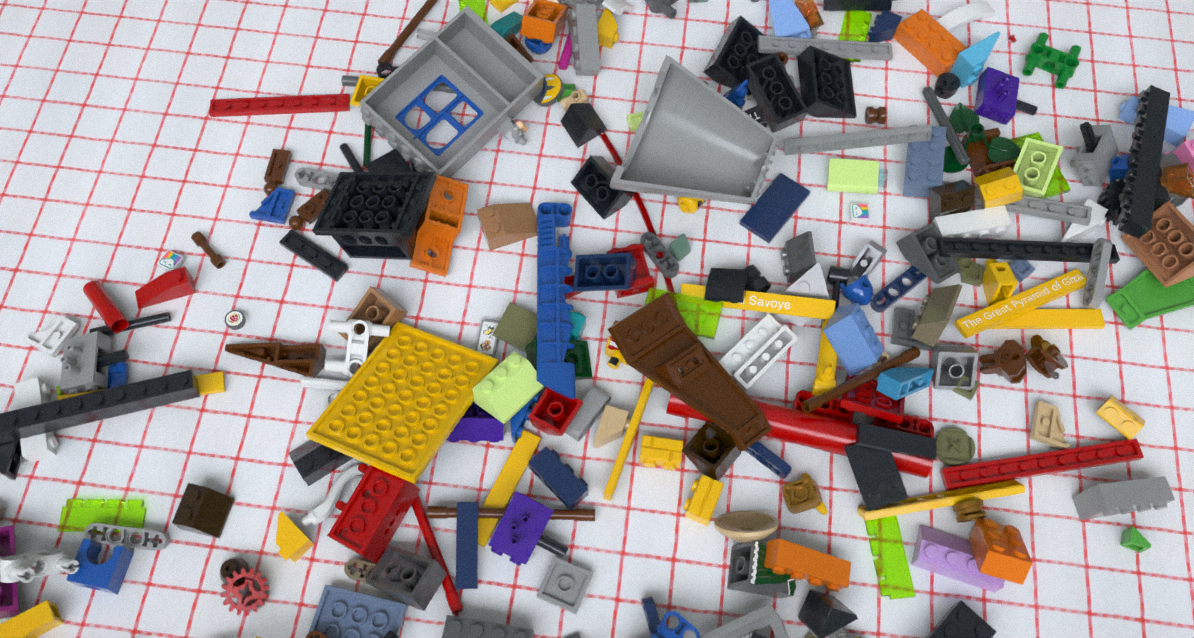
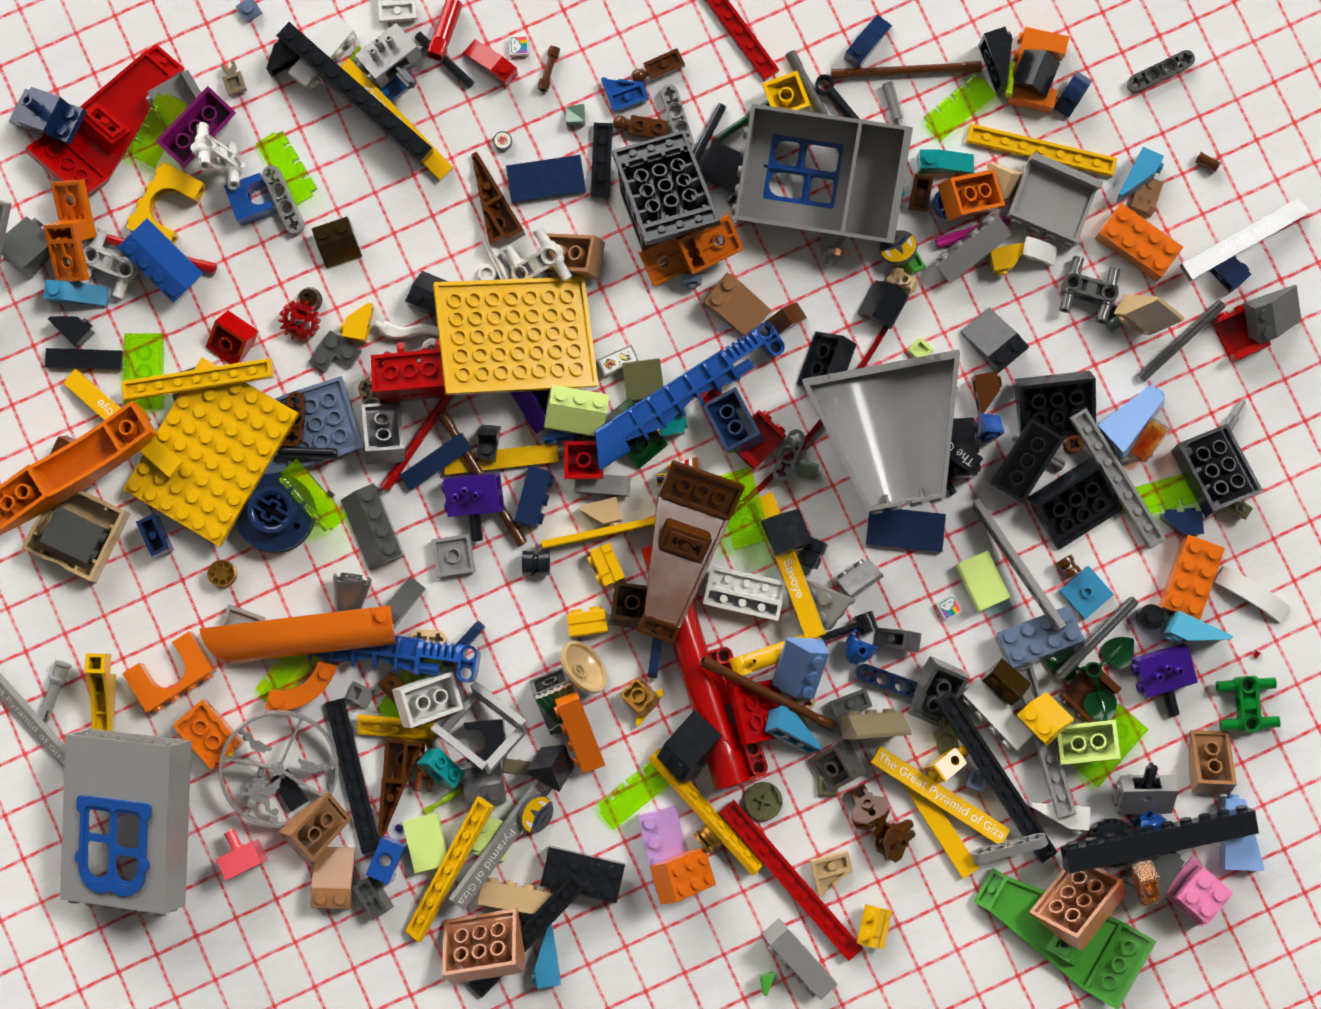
camera: 55 degrees right, 20 degrees up
(262, 251) = (575, 115): none -> sand green slope
(293, 305) = (546, 179): none -> dark blue tile
(294, 576) = (334, 347): none -> dark grey plate
(378, 30) = (867, 41): none -> dark blue slope
(463, 243) = (691, 280): none -> sand blue plate
(483, 488) = (488, 443): none -> black slope
(545, 193) = (787, 318): none -> reddish brown slope
(621, 510) = (536, 563): none -> black wheel
(649, 67) = (994, 340): none -> slope
(895, 441) = (718, 748): black tile -> none
(902, 113) = (1086, 592): none -> dark azure plate
(1088, 104) = (1211, 762): none -> medium nougat slope

